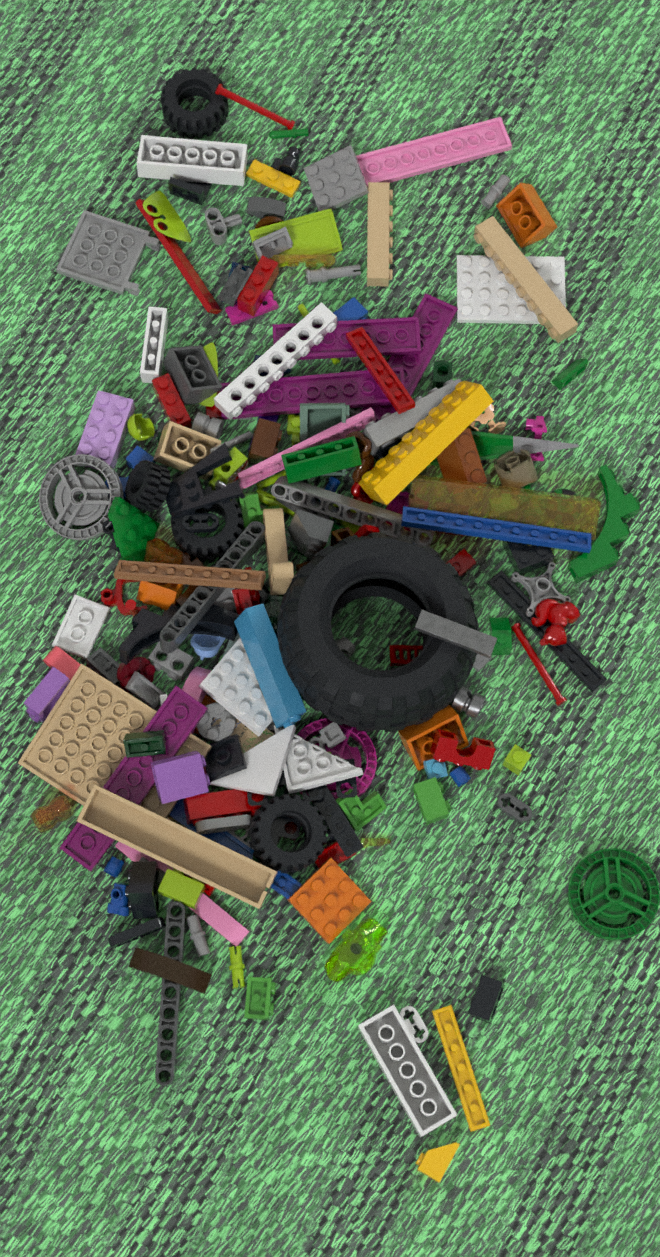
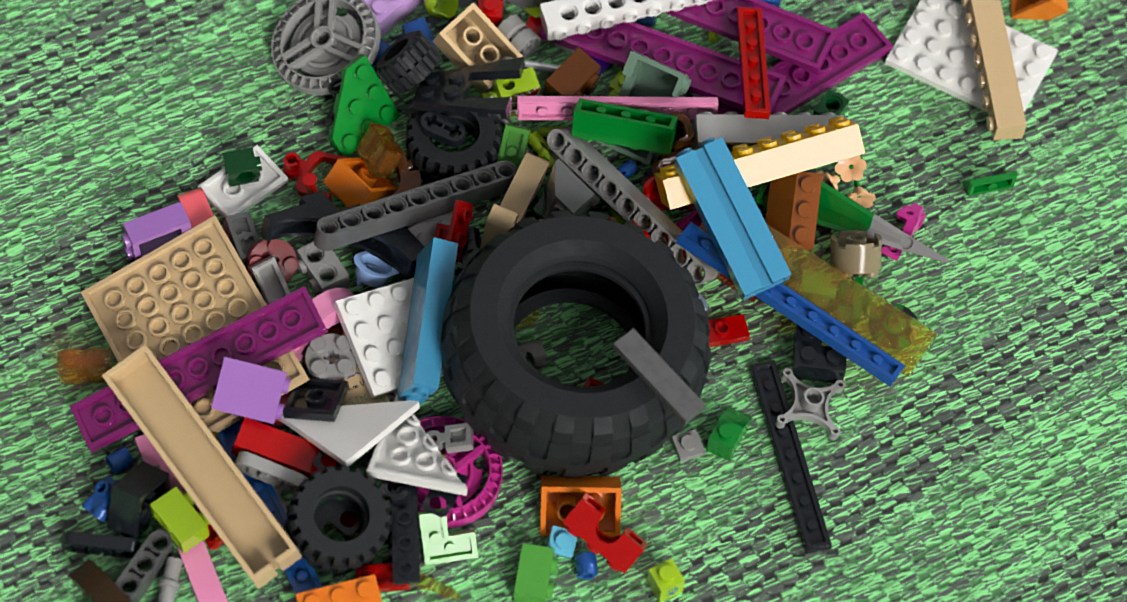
camera: 25 degrees right, 10 degrees down
(76, 617) = (241, 167): none -> dark green brick
(145, 743) = (231, 334): dark green slope -> none
(190, 575) = (396, 178): medium nougat tile -> none
(433, 492) = (731, 218): none -> dark azure brick
(468, 702) = (647, 490): flat silver wheel -> none
(516, 628) = (754, 435): red bar -> none
(559, 616) = (812, 442): red animal -> none
(614, 531) = (910, 398): green arch -> none

